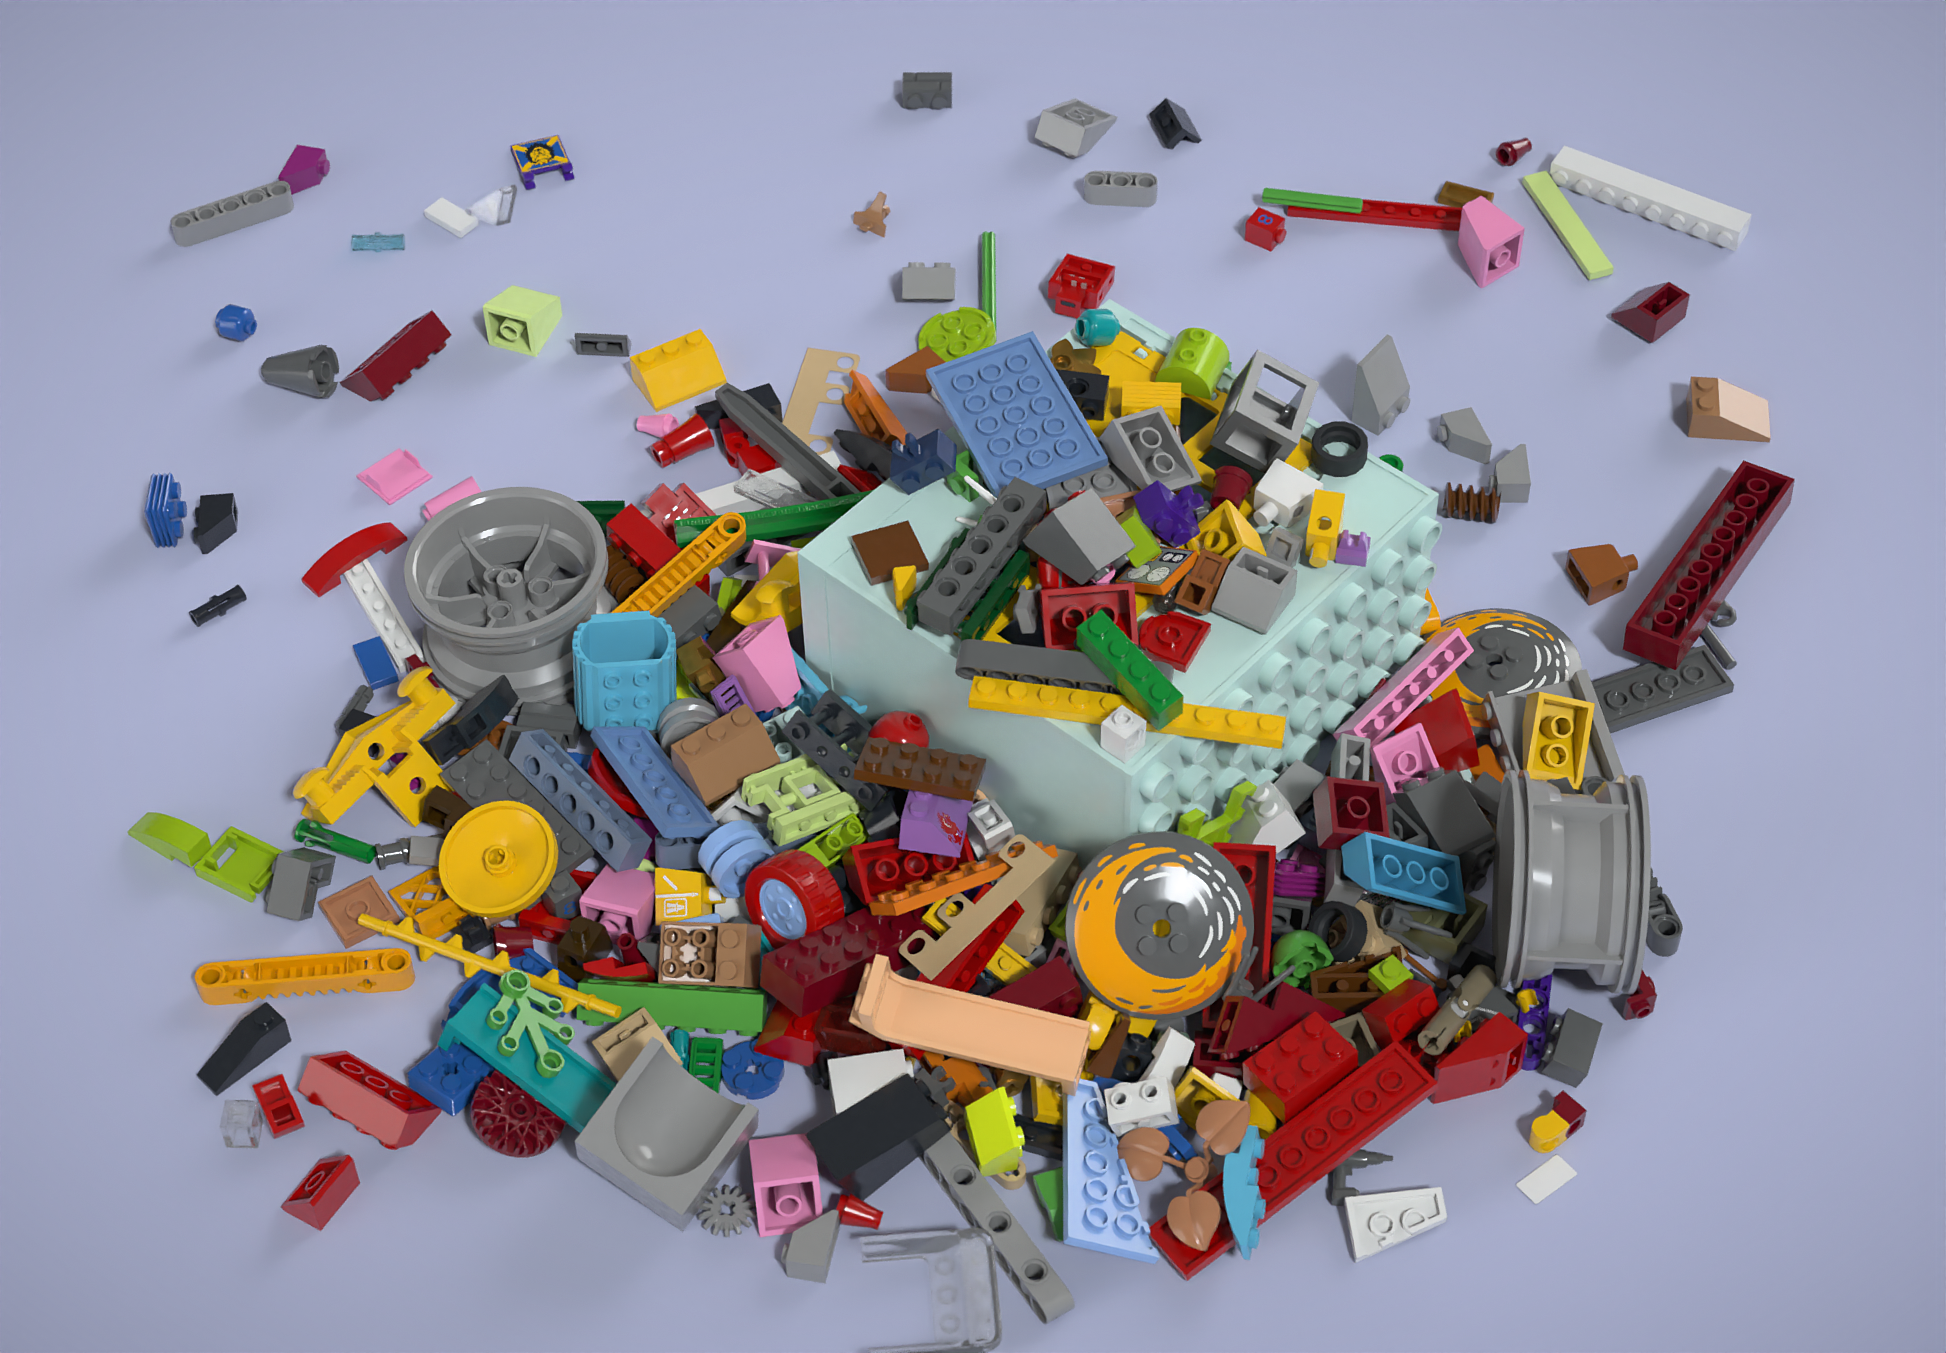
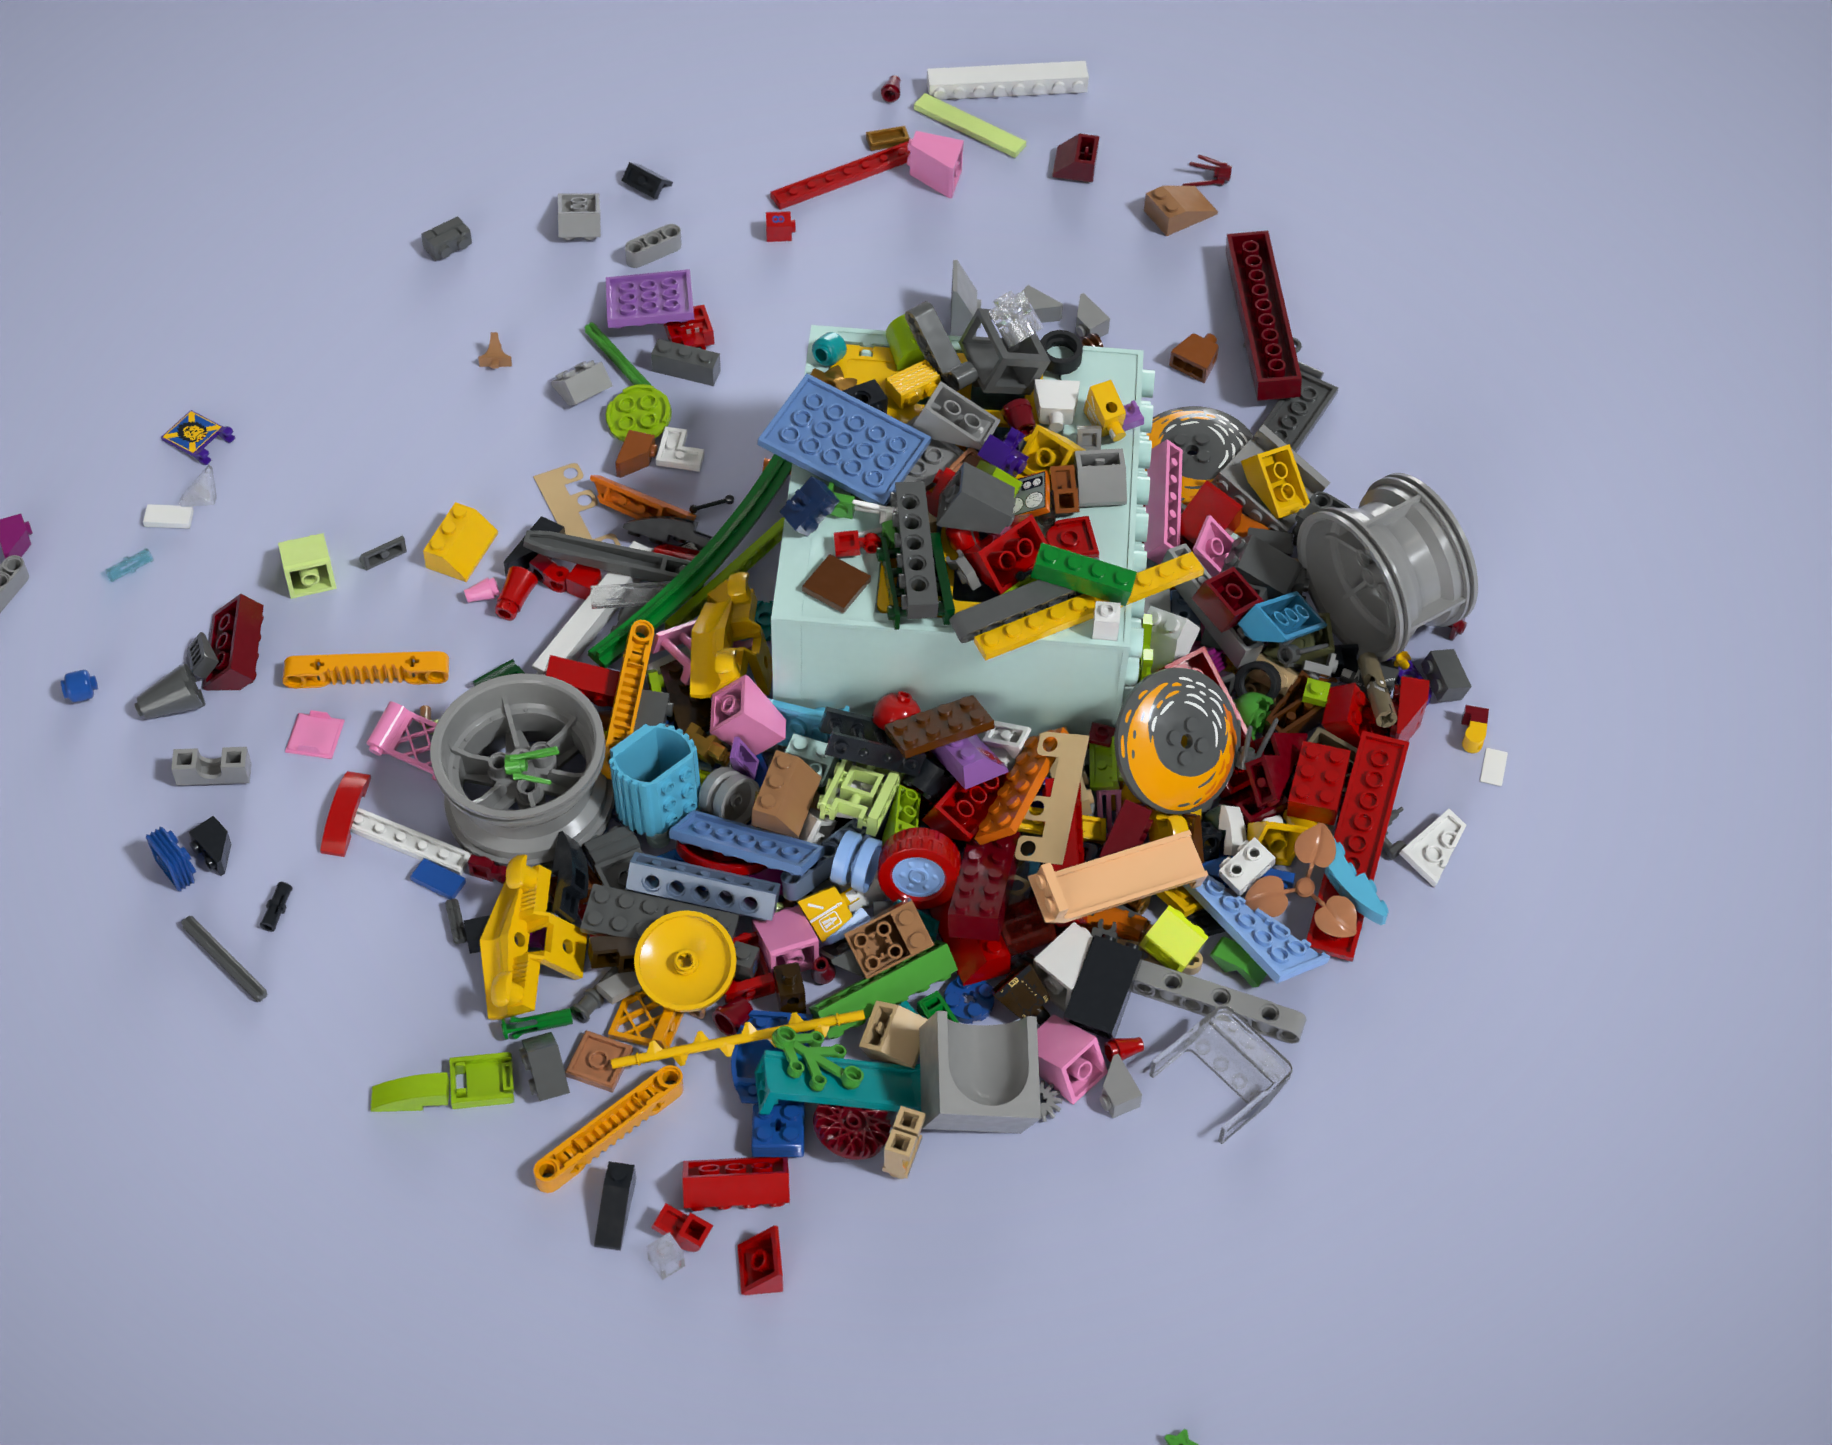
camera: 40 degrees left, 5 degrees up
(134, 626) = (224, 958): none -> dark grey axle
(291, 460) = (193, 769): none -> light grey arch
(358, 353) = (201, 656): none -> dark grey slope
(452, 420) = (428, 668): none -> light orange gear
(474, 934) = (693, 1024): black tile -> none
(484, 575) = (518, 763): none -> bright green plant
(541, 1159) = (903, 1142): none -> tan hips
(613, 969) = (829, 988): red slope -> none
(673, 505) = (571, 641): piece -> none
(799, 1093) = (1023, 993): none -> dark brown torso
(903, 584) = (869, 601): yellow slope -> none
(937, 520) = (849, 543): none -> red plate
(1043, 308) = (685, 362): none -> dark grey brick
(1064, 234) = (649, 298): none -> medium lavender plate
(1197, 375) = (938, 348): none -> dark grey beam
(1283, 376) = (1015, 318): none -> clear gear
(1312, 200) = (793, 189): bright green axle -> none
(1419, 956) = (1315, 670): none -> light grey bracket
(1809, 398) = (1221, 170): none -> dark red plant

